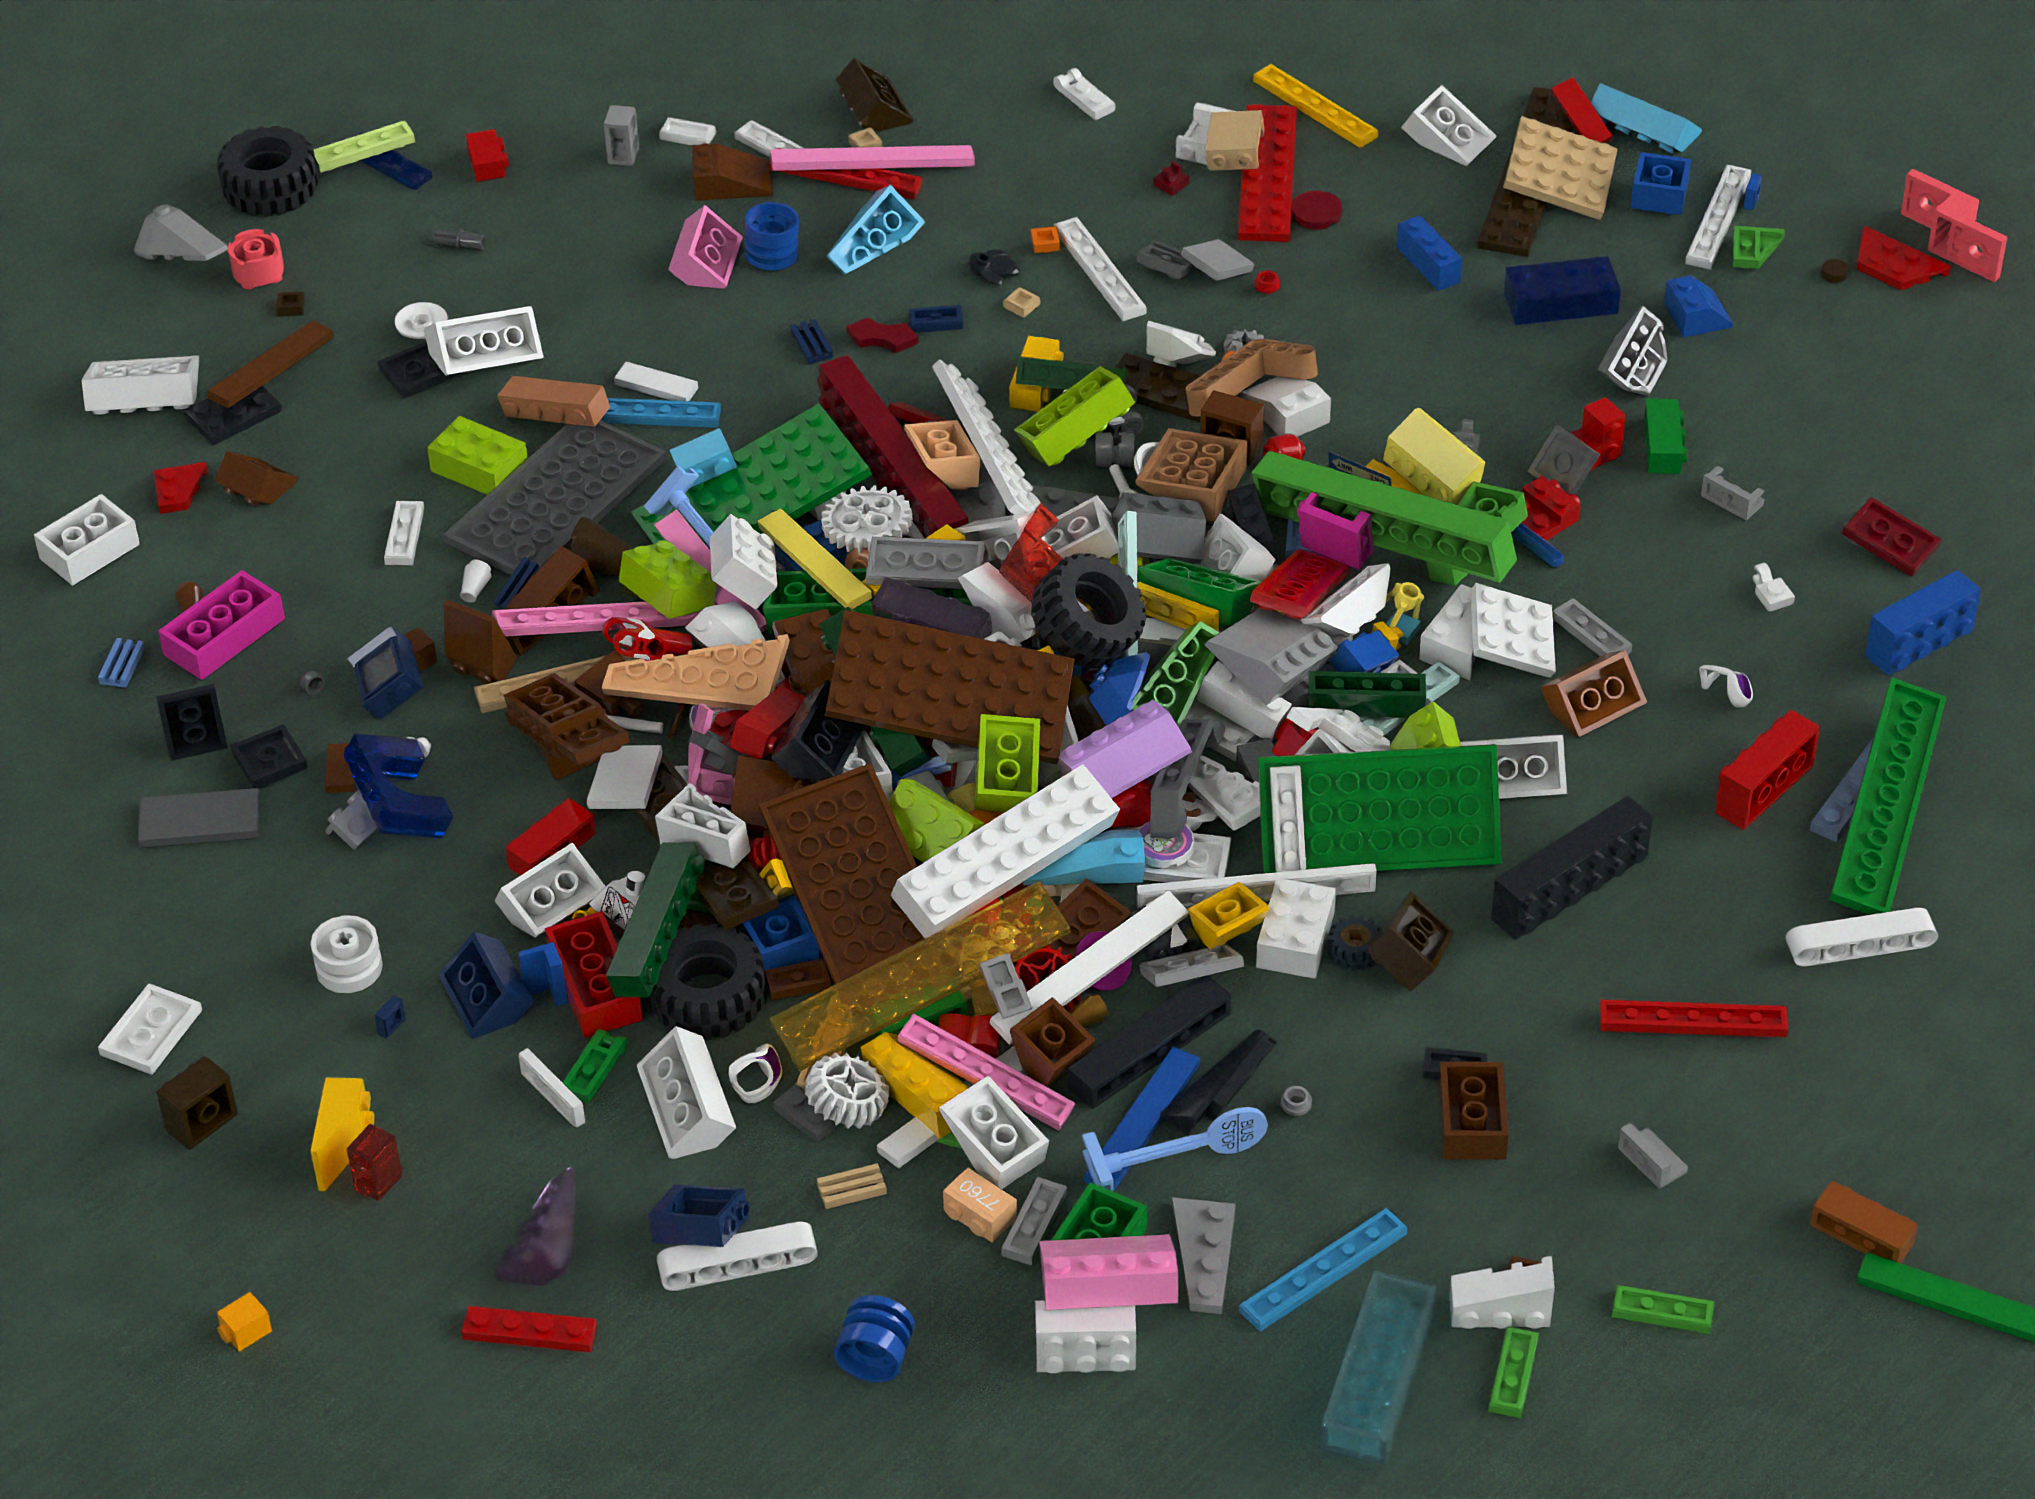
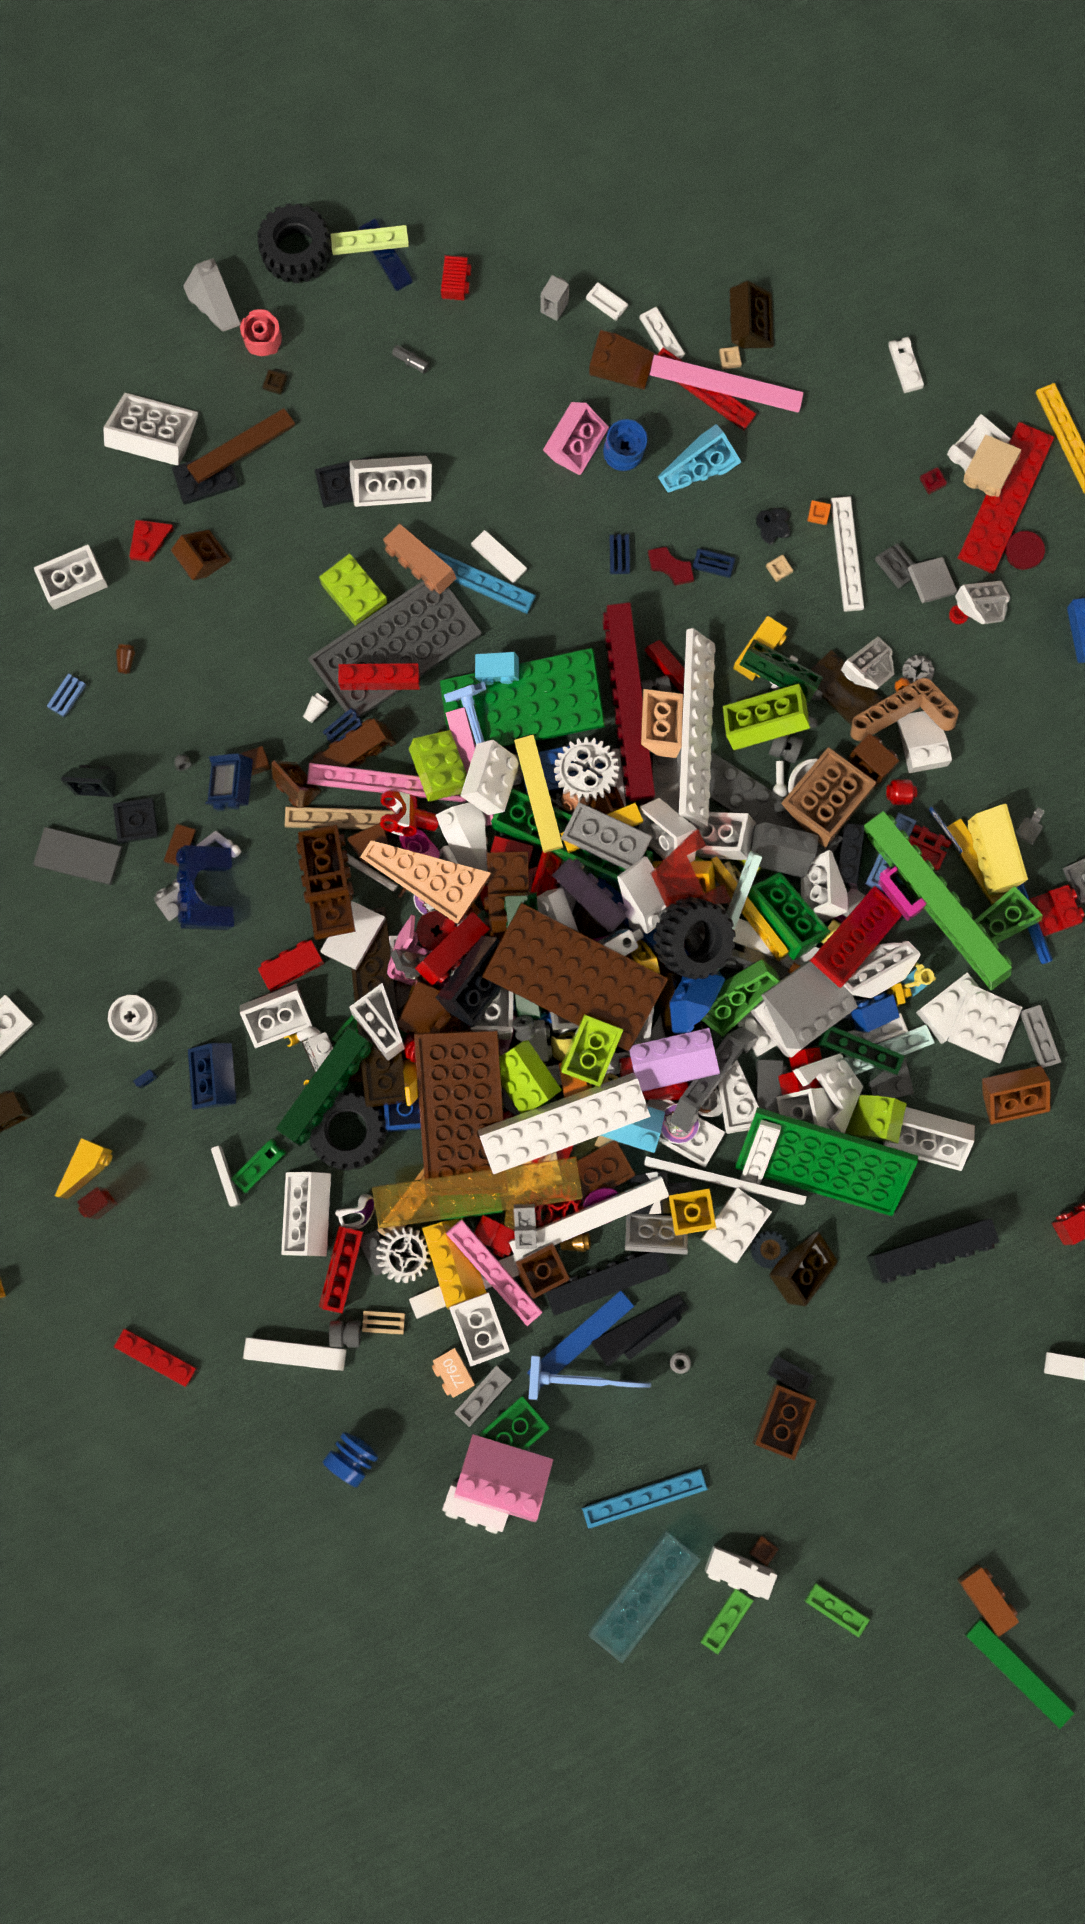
camera: 20 degrees right, 35 degrees up
(221, 624) = (136, 692): dark pink brick -> none
(404, 533) = (284, 640): white tile -> none
(417, 316) = (357, 429): white dish -> none
(544, 971) = (254, 1088): blue panel -> none
(545, 1238) = (182, 1299): clear purple wedge -> none
(547, 516) = (379, 676): none -> red brick
(586, 954) = (276, 1090): red brick -> none
(598, 547) = (405, 717): dark brown cone -> none
(698, 1215) = (264, 1309): dark blue window -> none
(763, 1134) = (340, 1269): none -> red brick
(797, 979) = (404, 1143): reddish brown plate -> none
(802, 1206) = (345, 1334): none -> dark grey wheel
(905, 767) = (524, 1028): none -> dark grey wheel
(1205, 1247) = (580, 1451): light grey wing -> none
(1284, 253) = (983, 601): none -> white wedge
(1650, 1155) = (883, 1491): light grey panel -> none
(1693, 1018) = (957, 1395): red plate -> none

